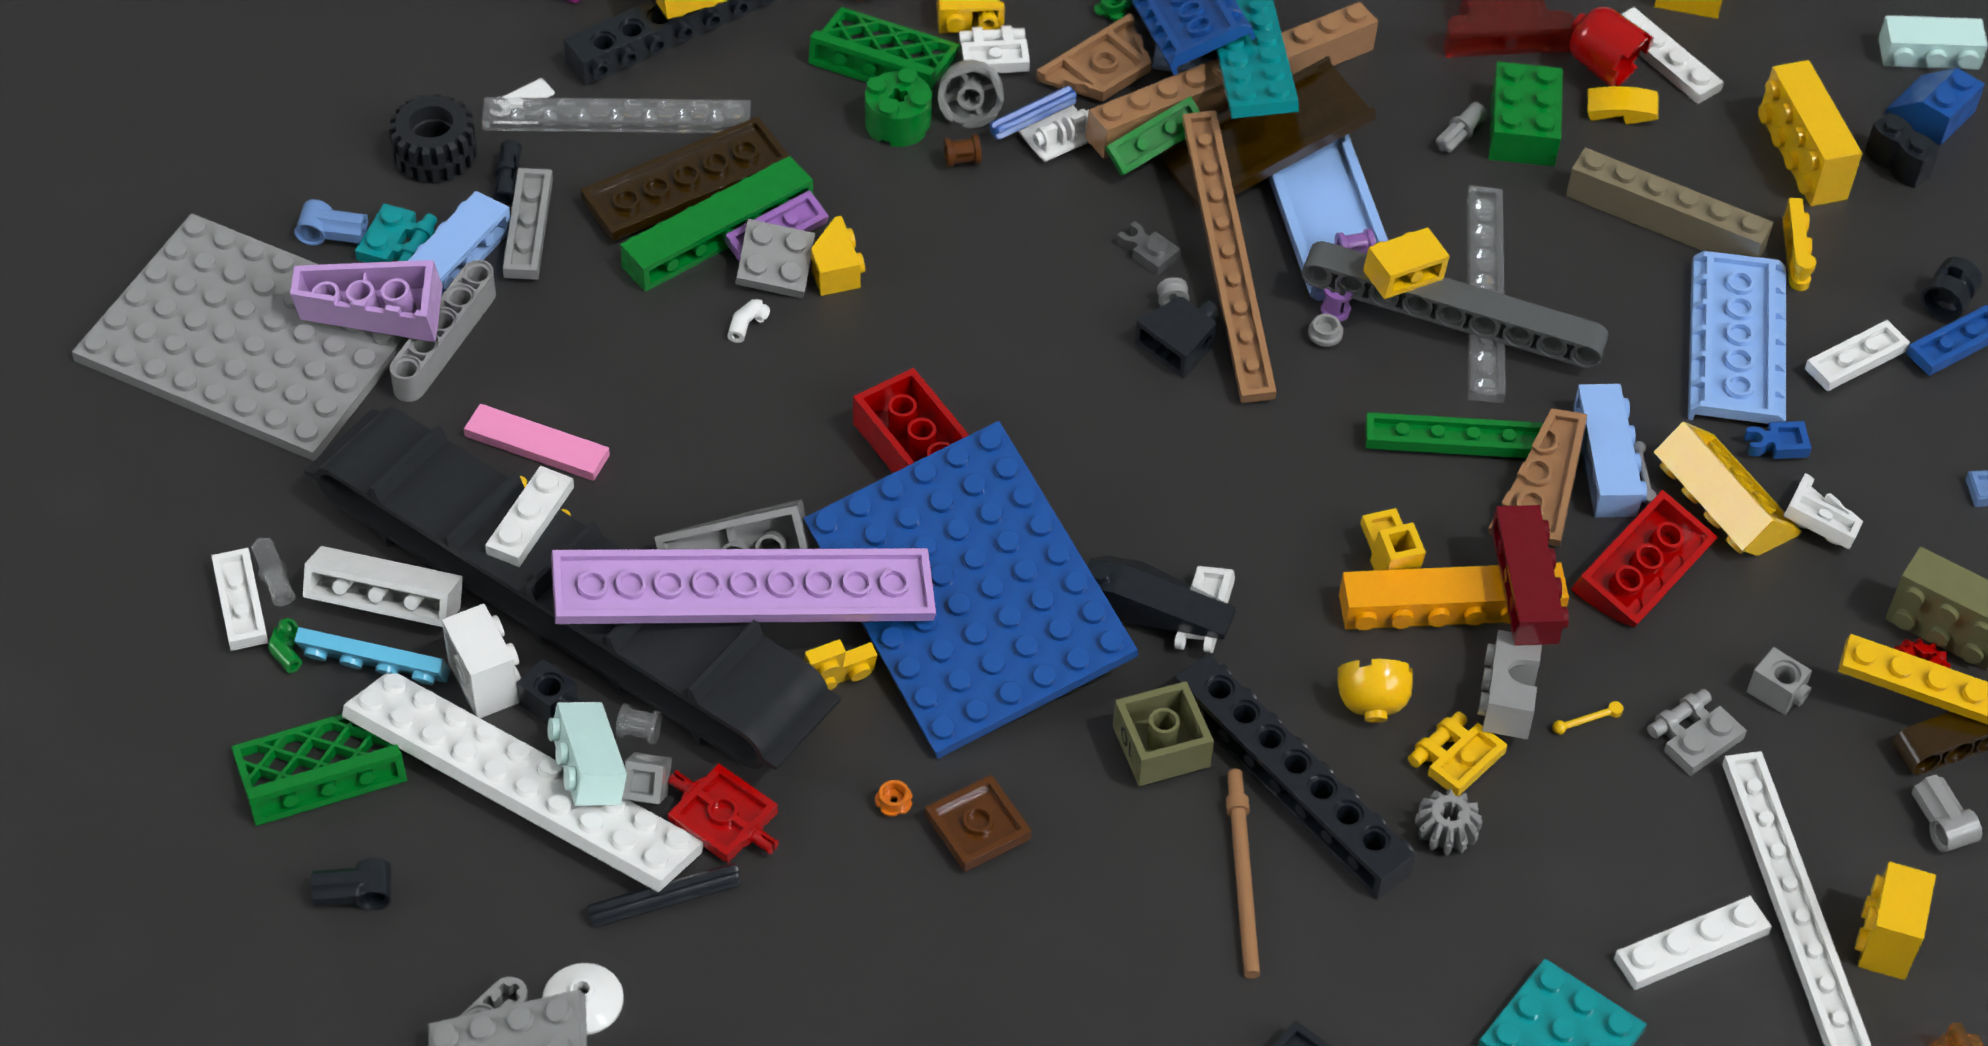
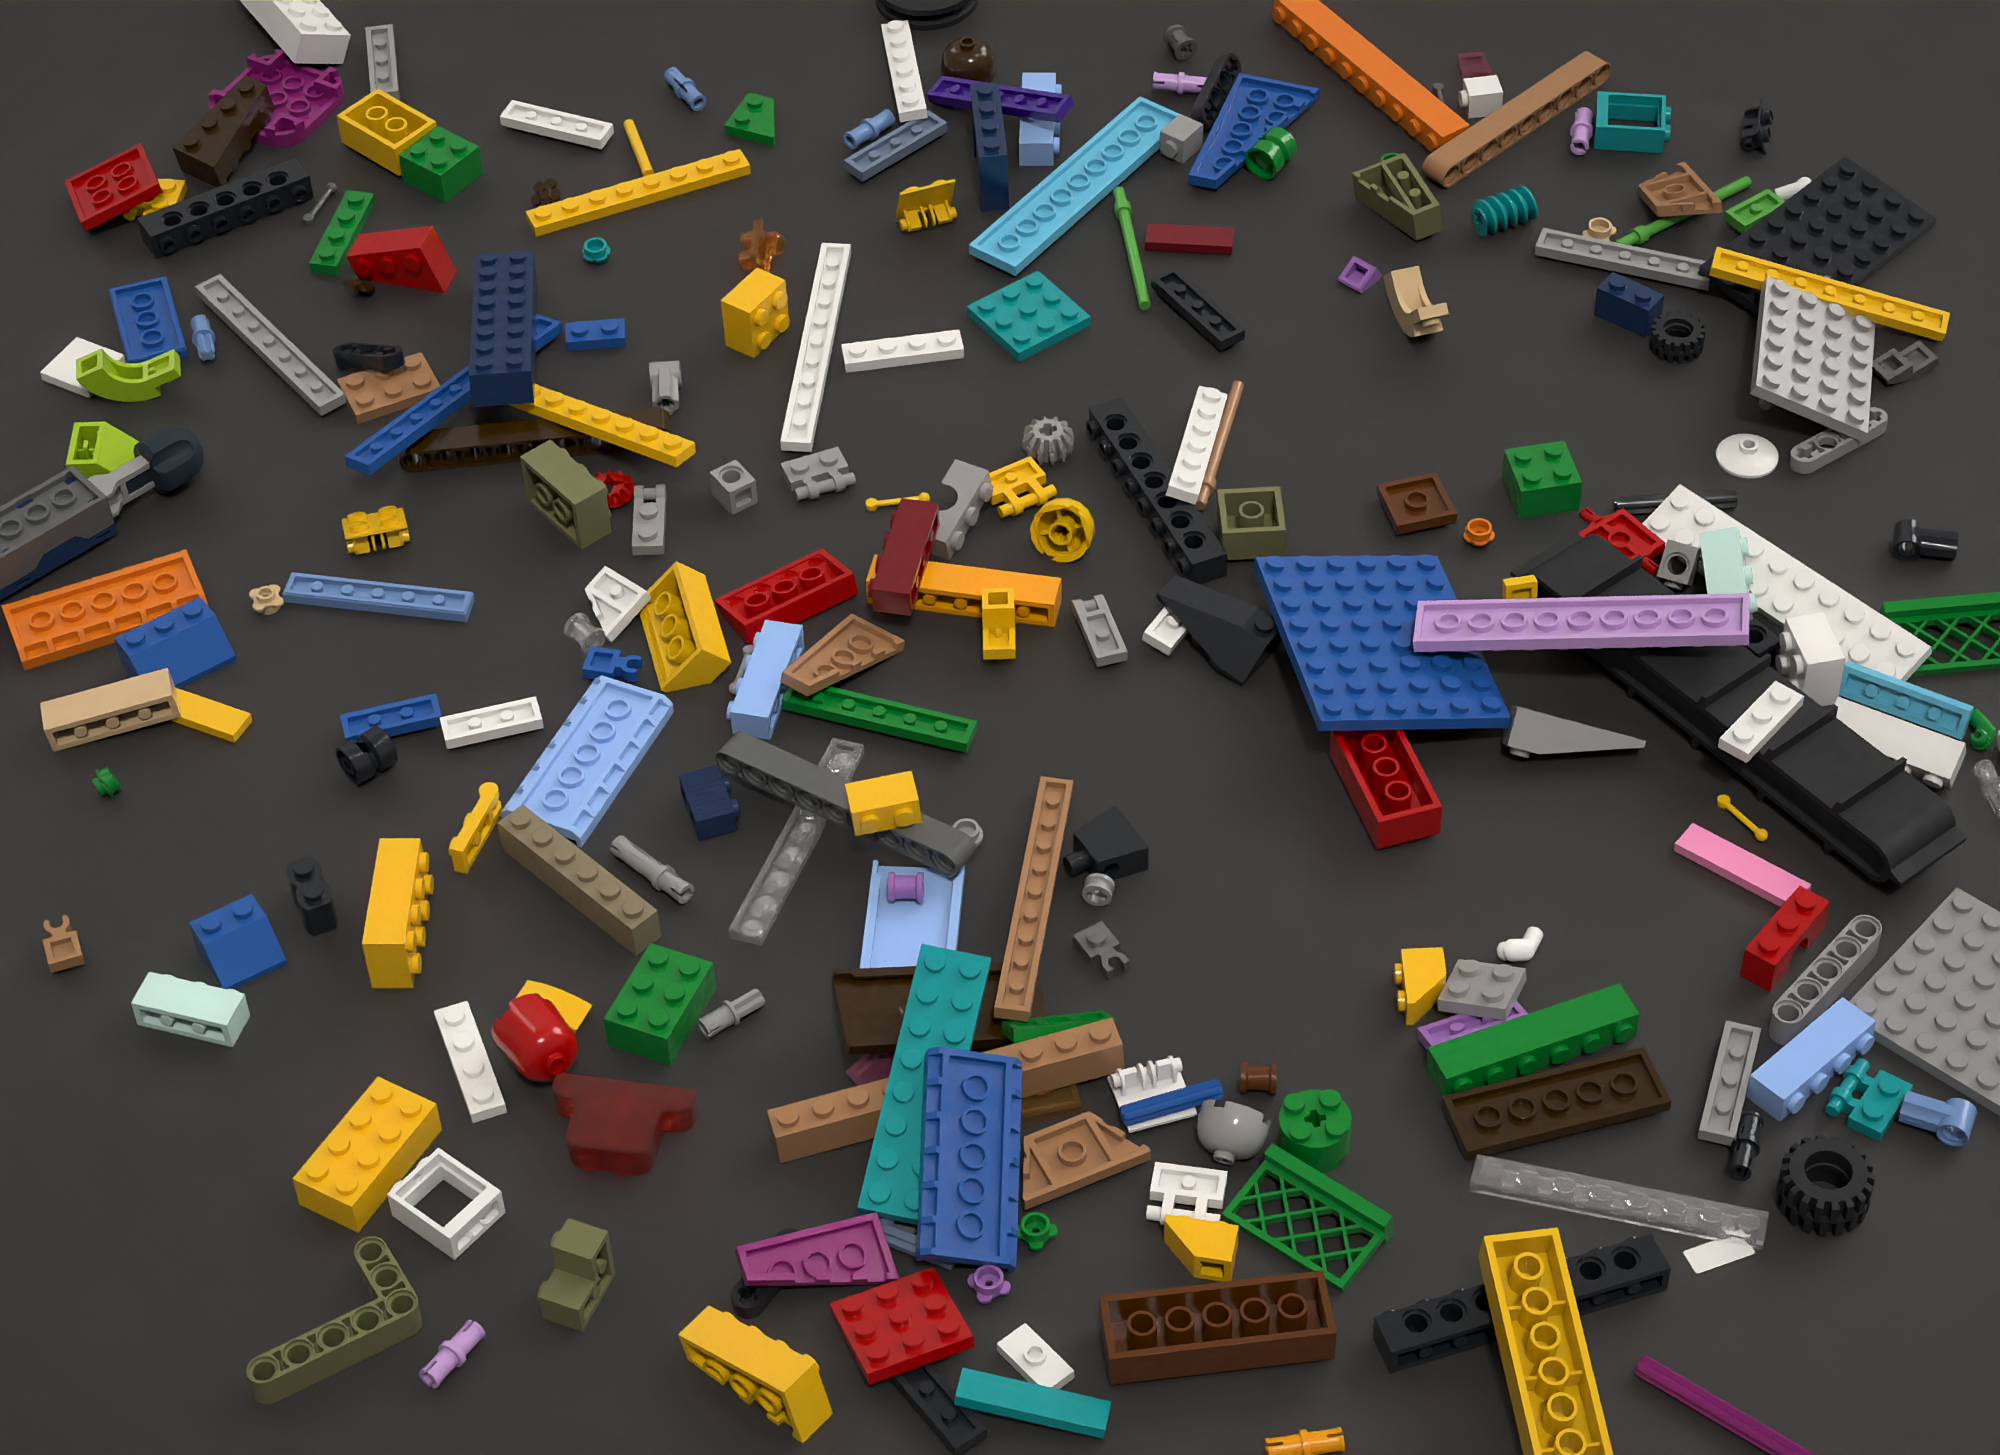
camera: 160 degrees left, 5 degrees down
(372, 297) = (1901, 975): lavender wedge -> none
(496, 340) = (1793, 925): none -> red arch
(833, 878) = (1541, 479): none -> green brick
(1265, 838) = (1196, 444): none -> white plate
(1286, 582) = (1099, 630): none -> light grey plate
(1574, 226) = (661, 876): none -> light grey pin
(1593, 300) = (708, 802): none -> dark blue brick
(1821, 459) = (580, 629): none -> clear bush
(1841, 616) = (649, 520): none -> light grey plate

